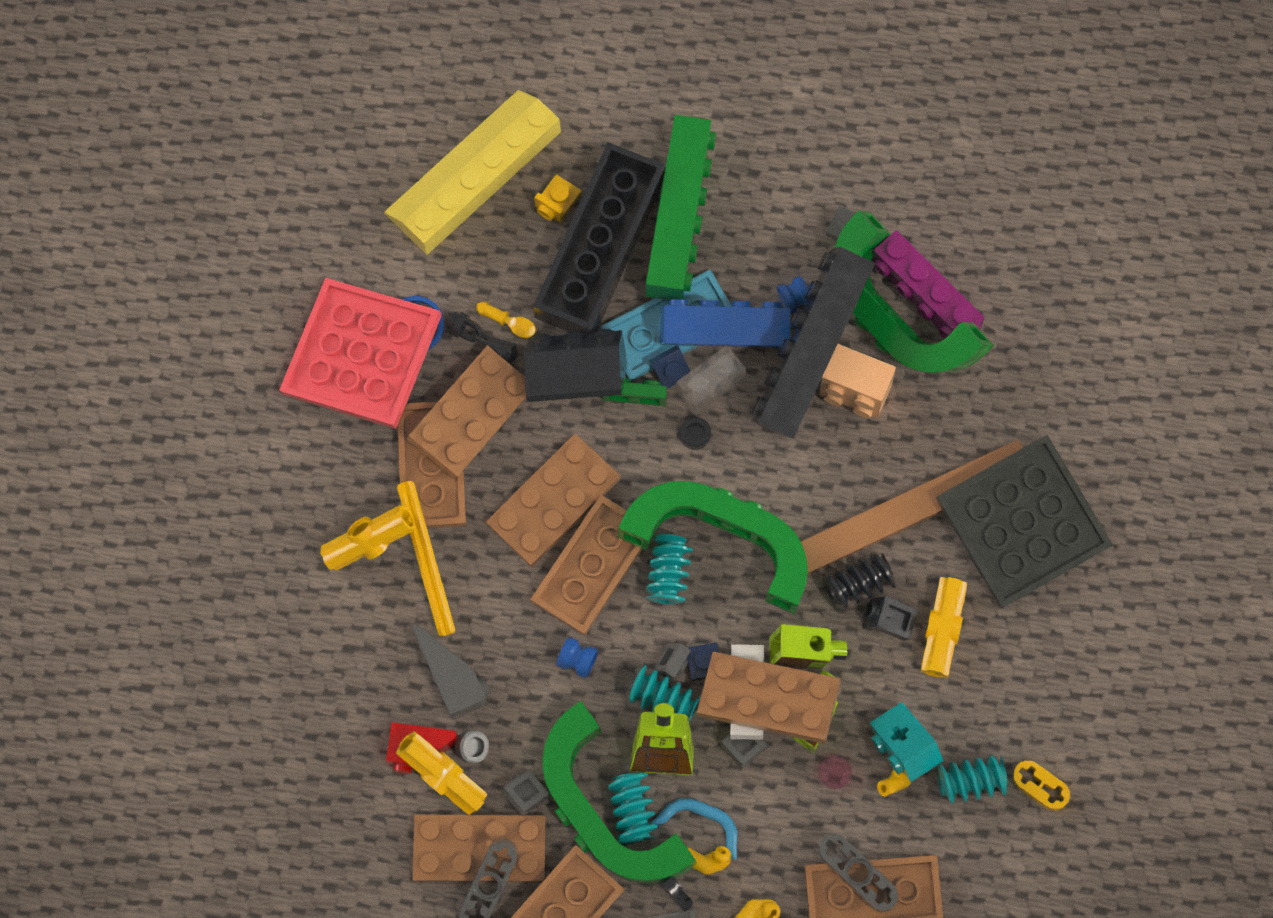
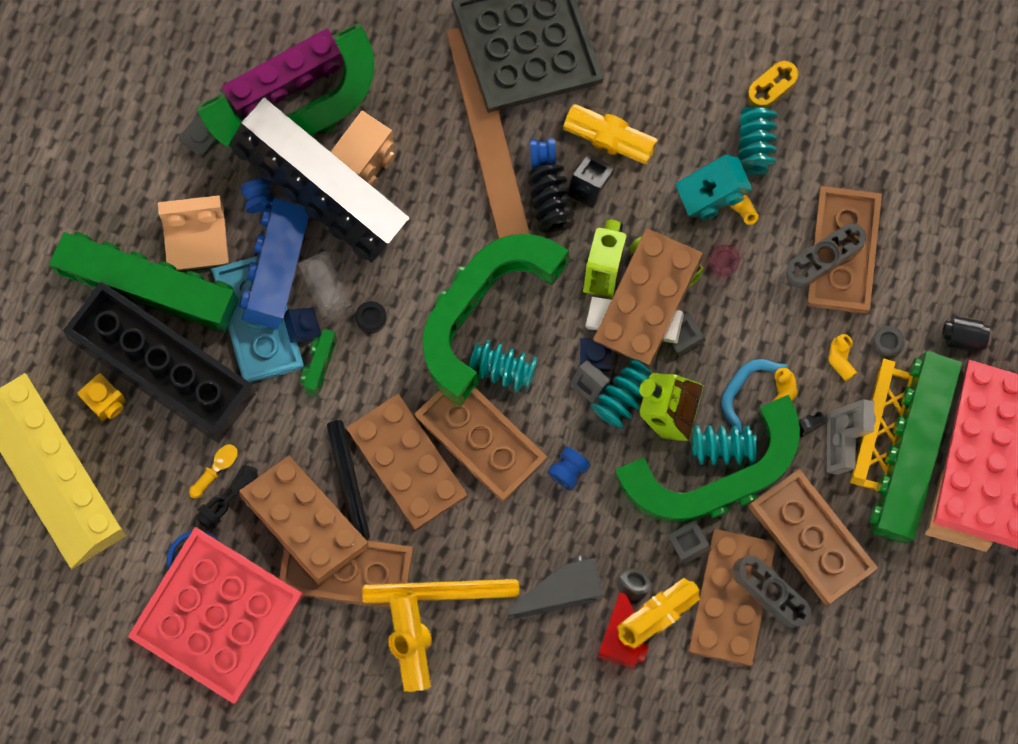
camera: 80 degrees left, 0 degrees up
(523, 448) = (347, 477): none -> black axle
(575, 365) = (284, 408): black slope -> none
(740, 245) = (194, 233): none -> light nougat bracket
(906, 563) = (542, 152): none -> blue wheel

